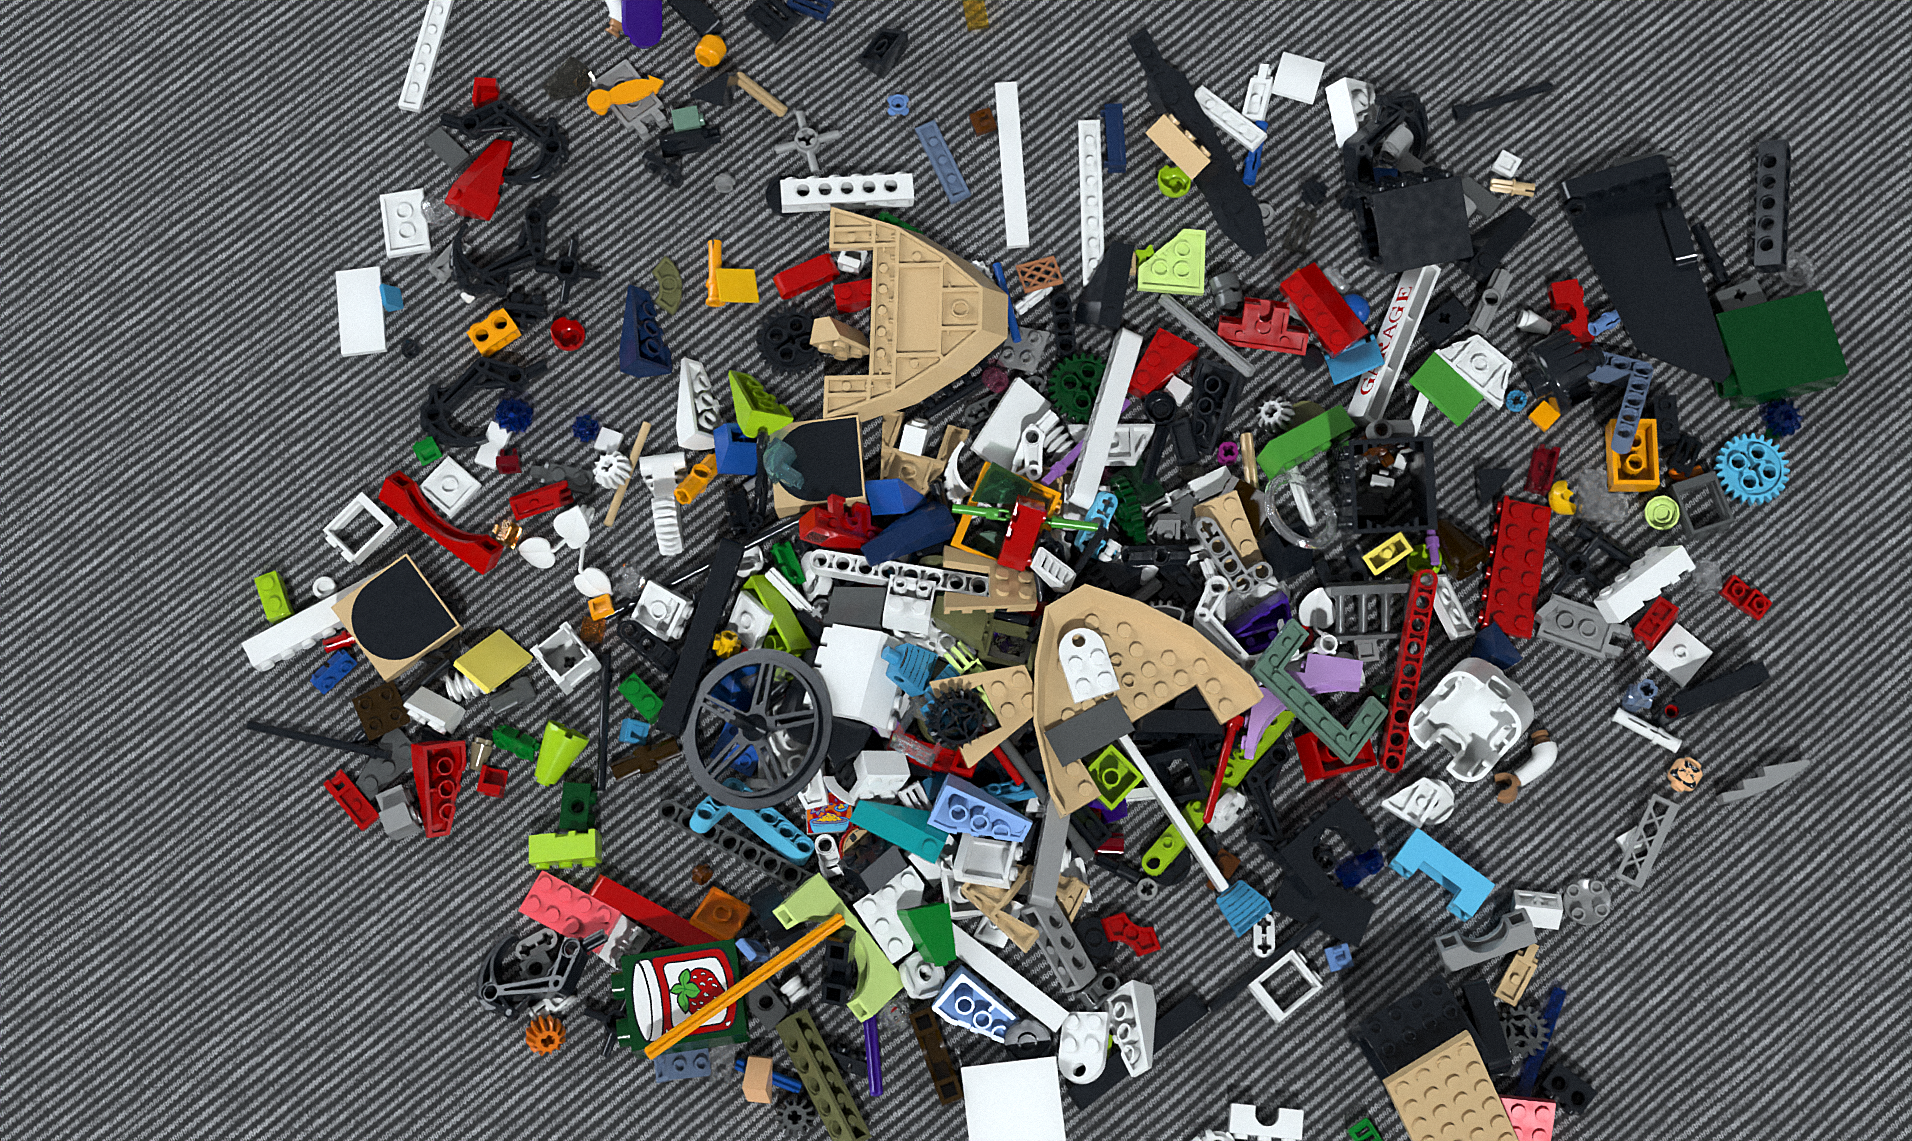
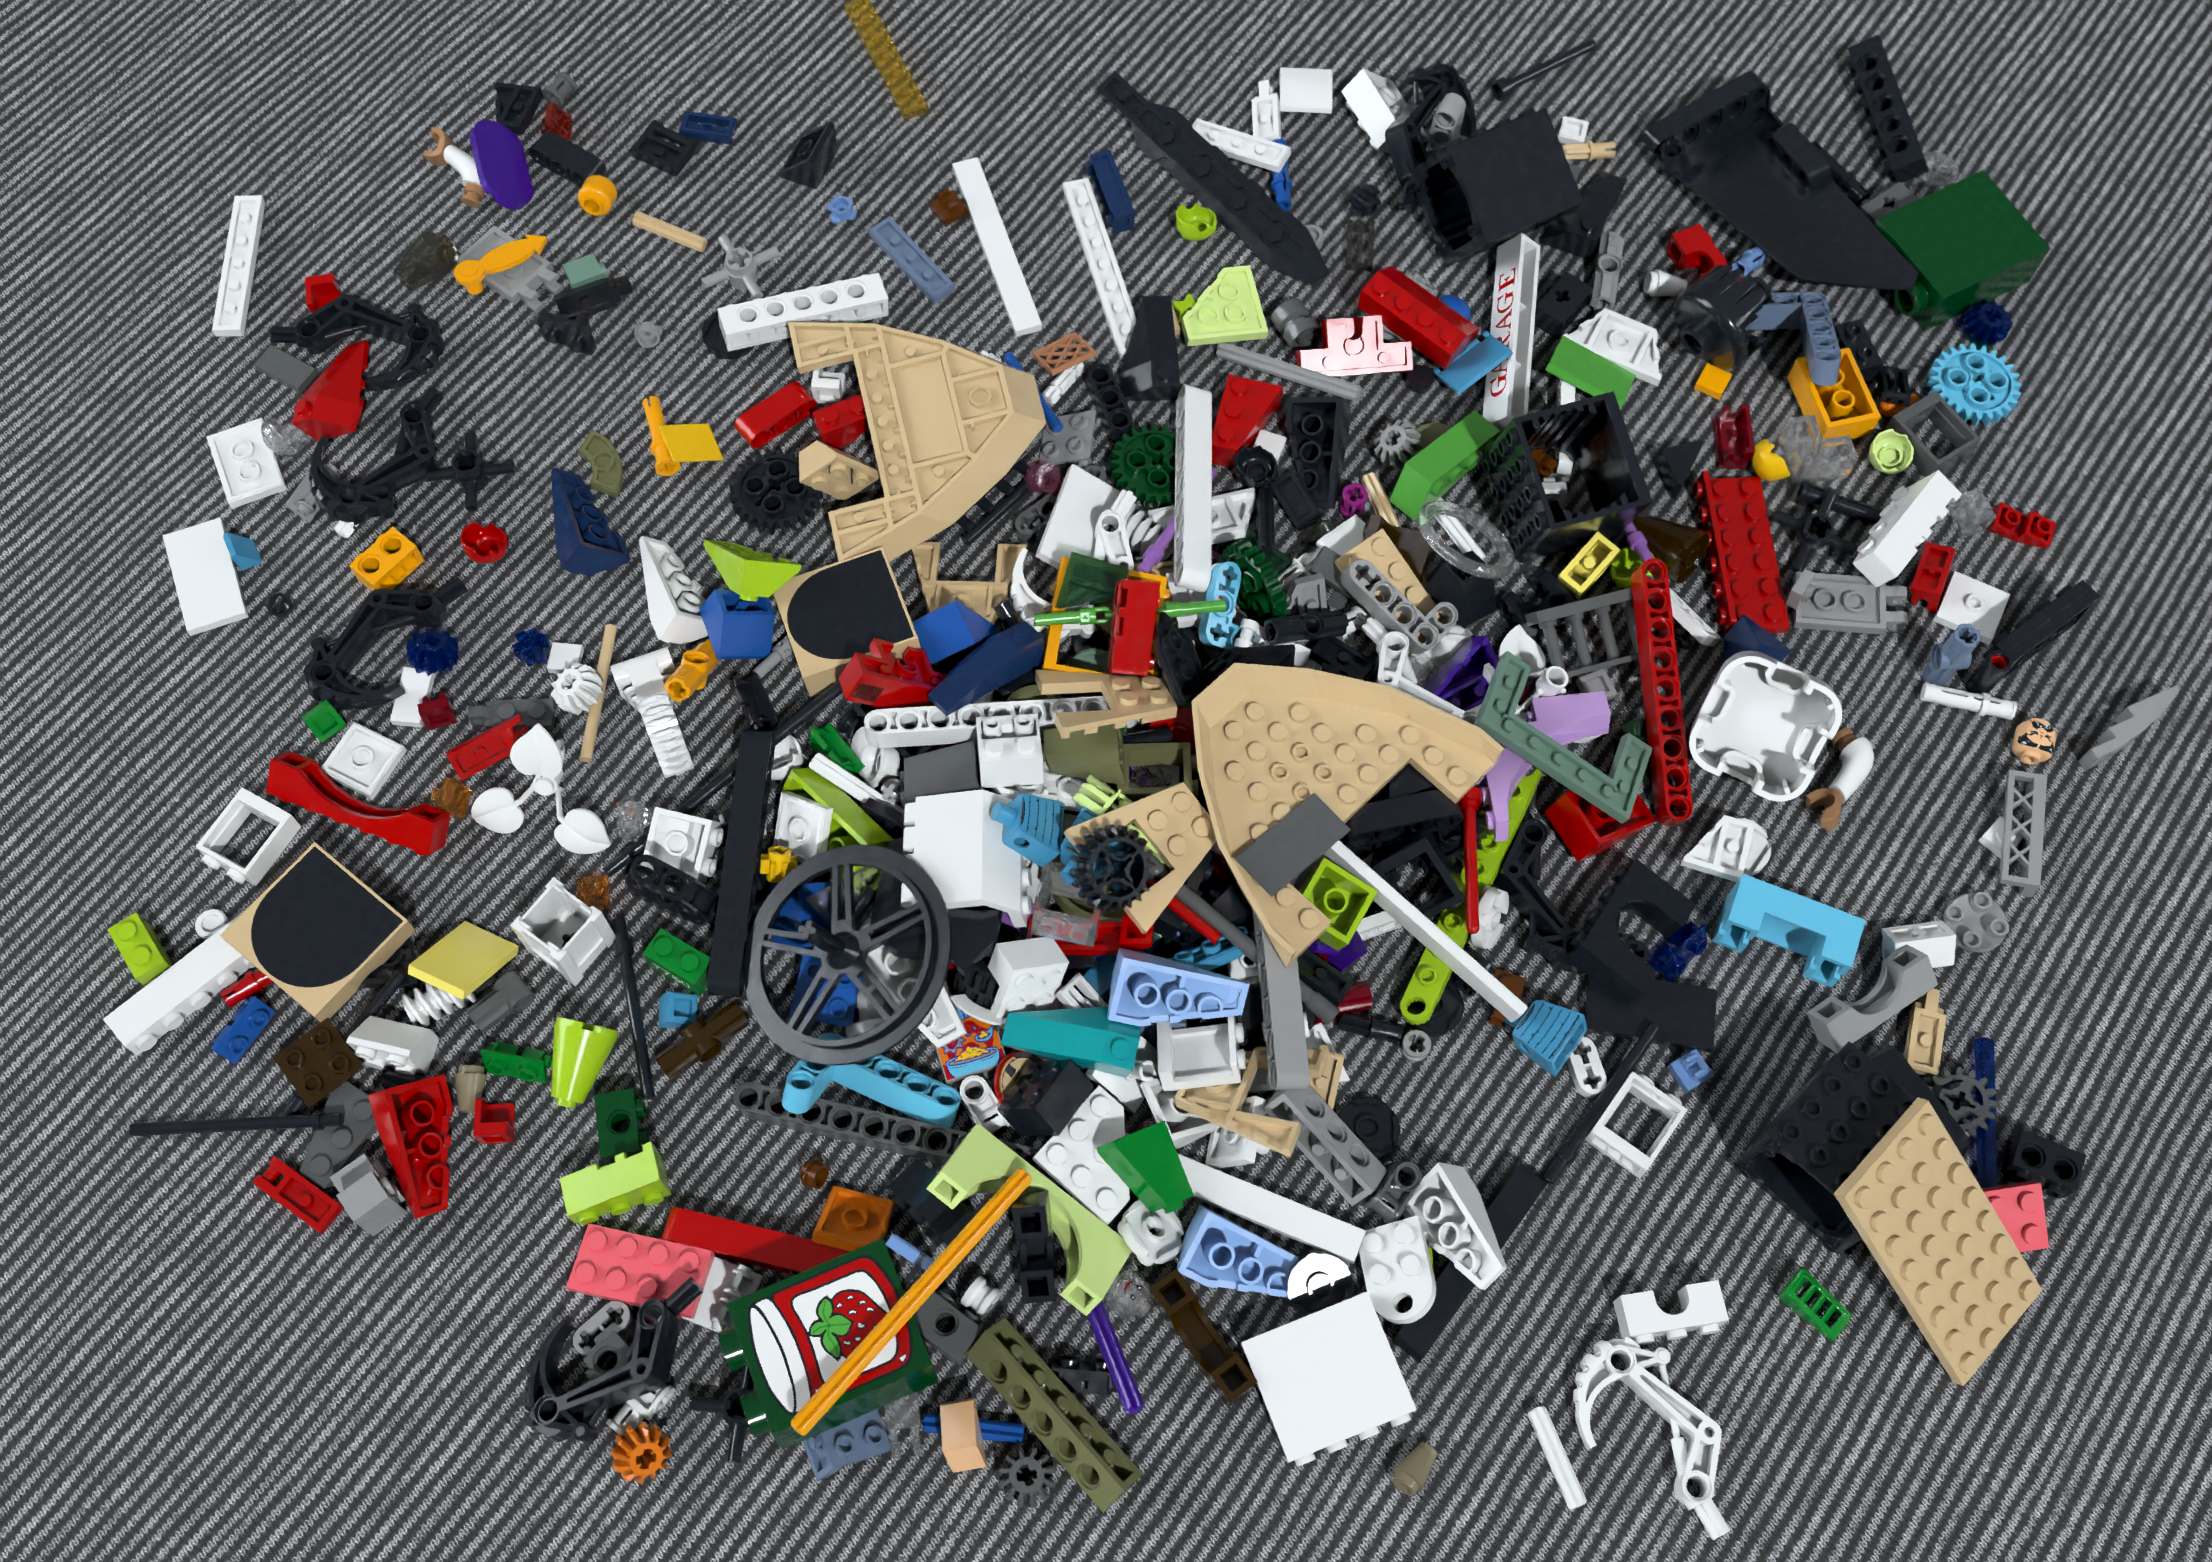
camera: 20 degrees left, 10 degrees down
(526, 313) = (424, 529): black hips -> none
(601, 607) = (598, 860): light orange tile -> none
(718, 91) = (615, 230): black slope -> none
(761, 483) = (782, 690): black plant -> none
(777, 464) = (796, 621): clear light blue brick -> none
(915, 436) = (961, 561): white slope -> none
(1065, 575) = (1188, 662): white slope -> none
(1078, 567) = (1187, 728): black bar -> none
(1087, 667) = (1267, 764): white plate -> none
(1121, 929) = (1400, 1104): red tile -> none
(1179, 145) = (1191, 177): tan wedge -> none
(1516, 393) = (1681, 369): dark azure bush -> none

